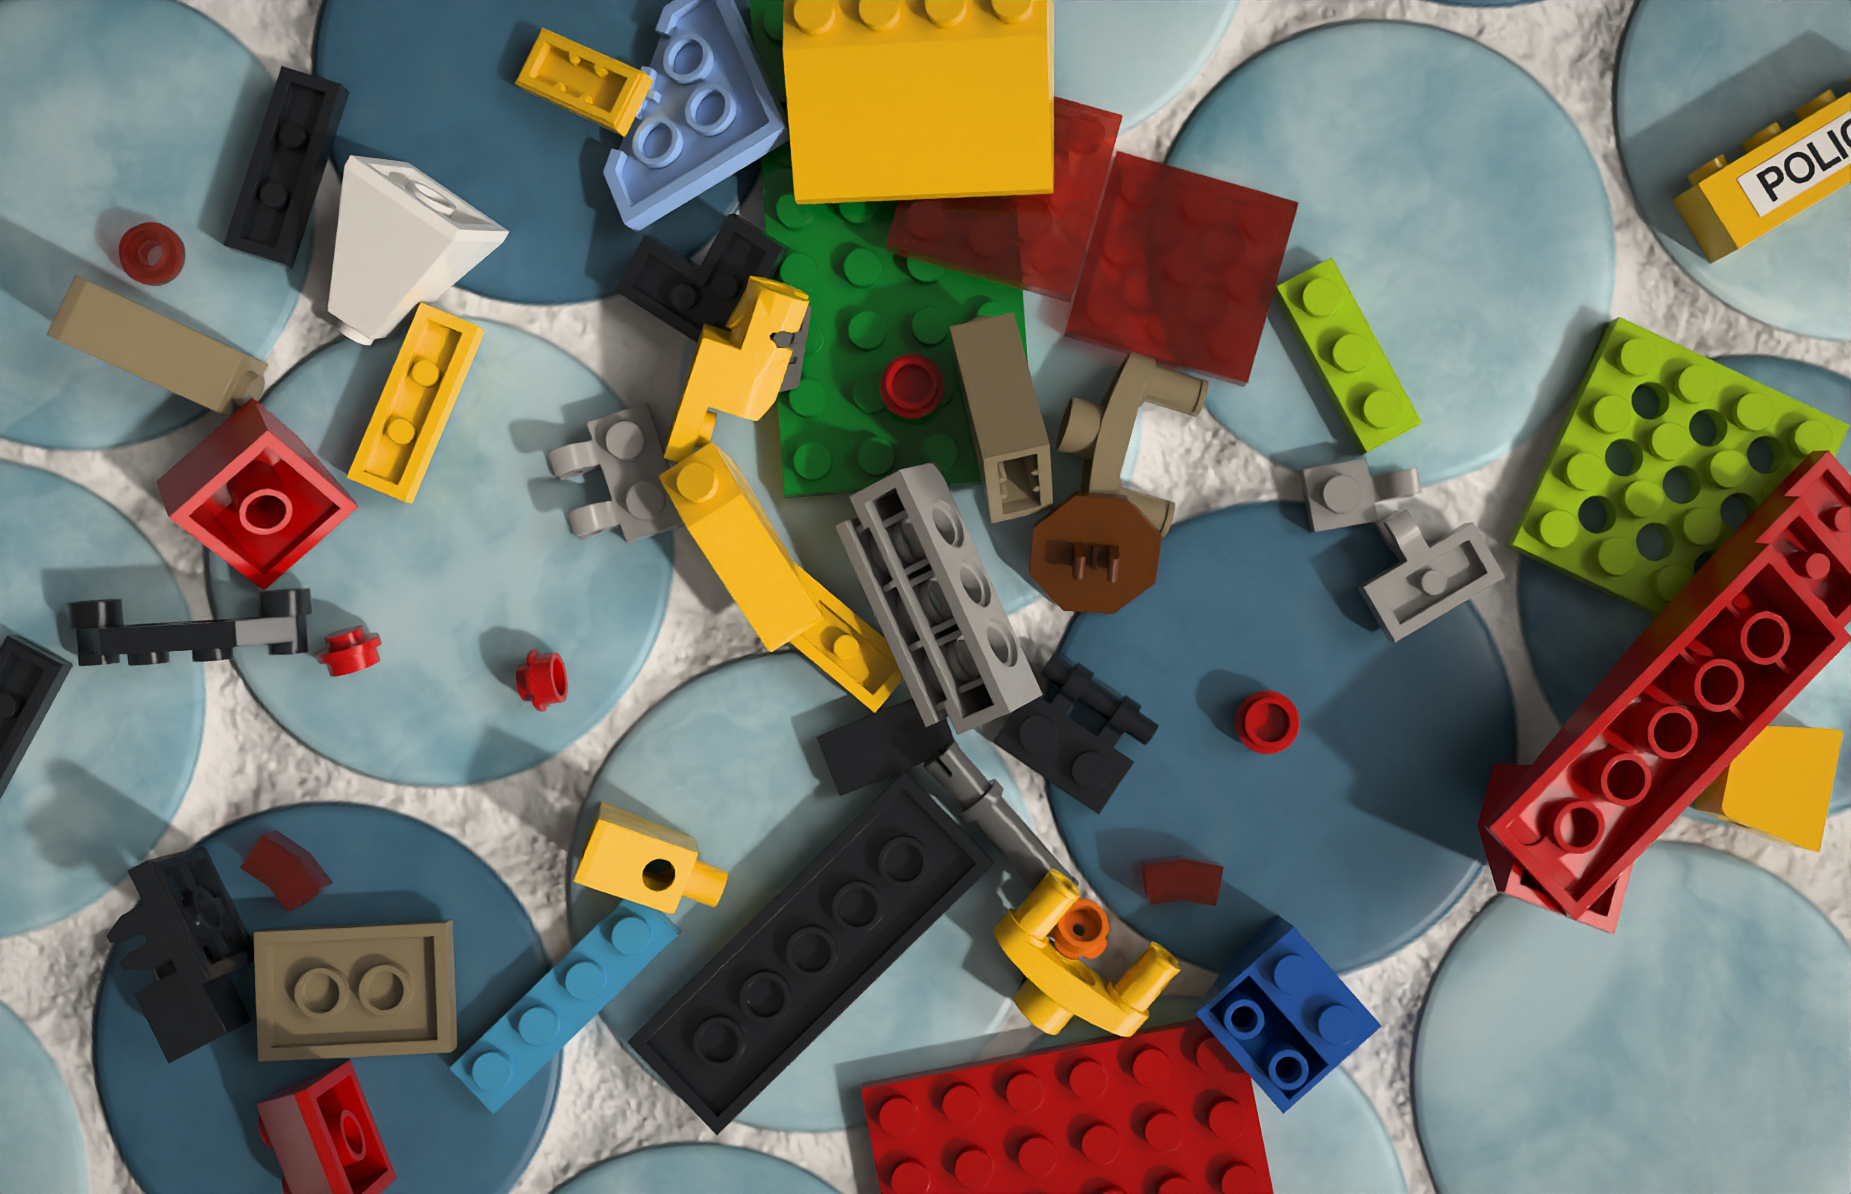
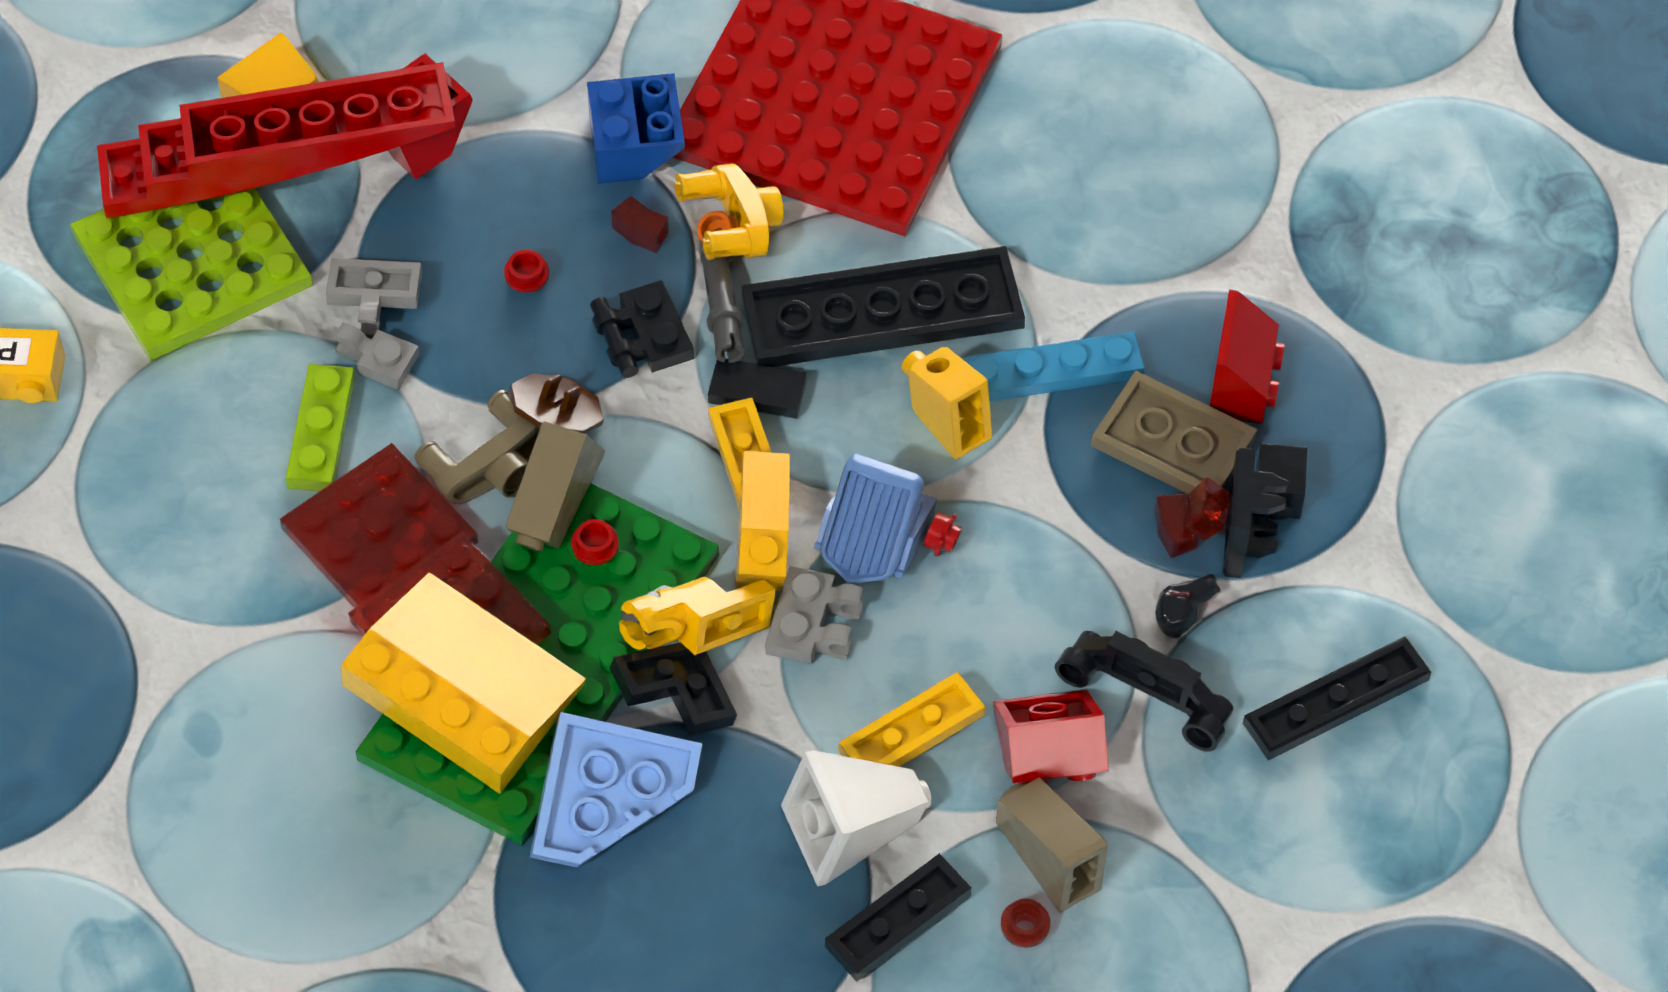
camera: 155 degrees left, 30 degrees down
(218, 766) = (1180, 603): none -> black animal
(240, 900) = (1207, 509): none -> clear red piece
(349, 651) = (1052, 614): red plate -> none
(584, 82) = (666, 850): yellow plate -> none
(623, 634) = (874, 521): none -> medium blue piece
(900, 596) = (669, 424): light grey brick -> none

